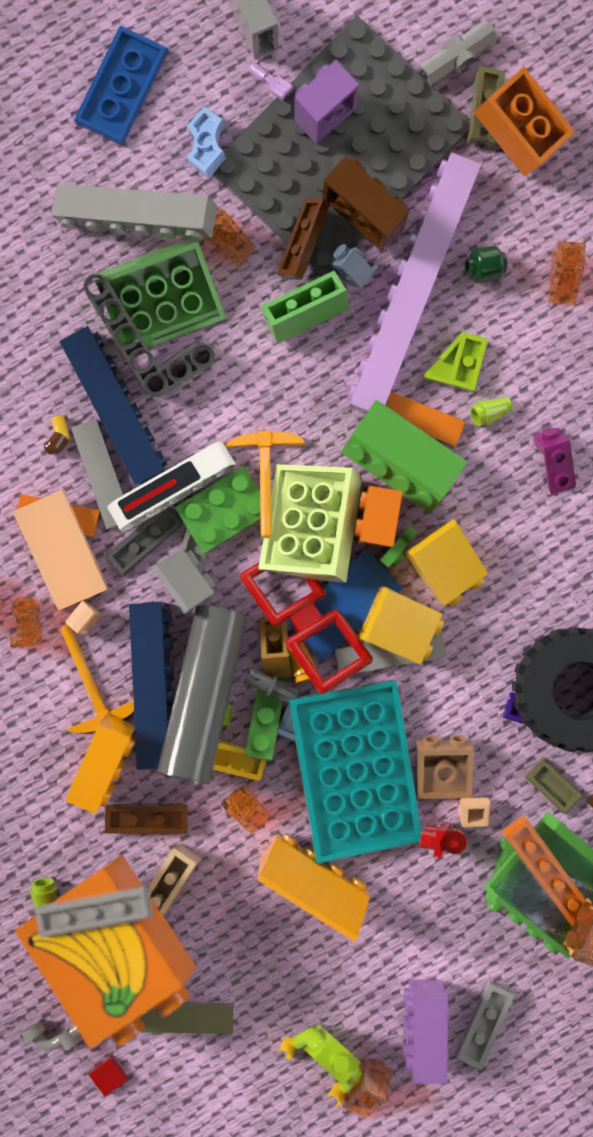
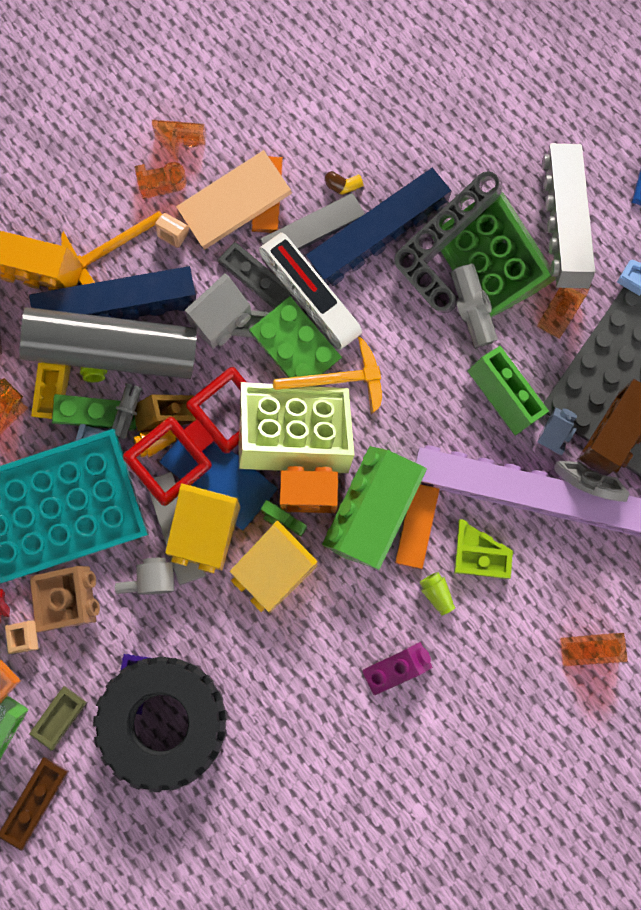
camera: 80 degrees right, 10 degrees down
(212, 324) = (474, 305): none -> light grey piece
(303, 238) = (575, 377): reddish brown plate -> none
(410, 242) = (590, 481): none -> light grey tile
(437, 680) = (153, 577): none -> light grey piece
(486, 264) = (586, 565): dark green head -> none

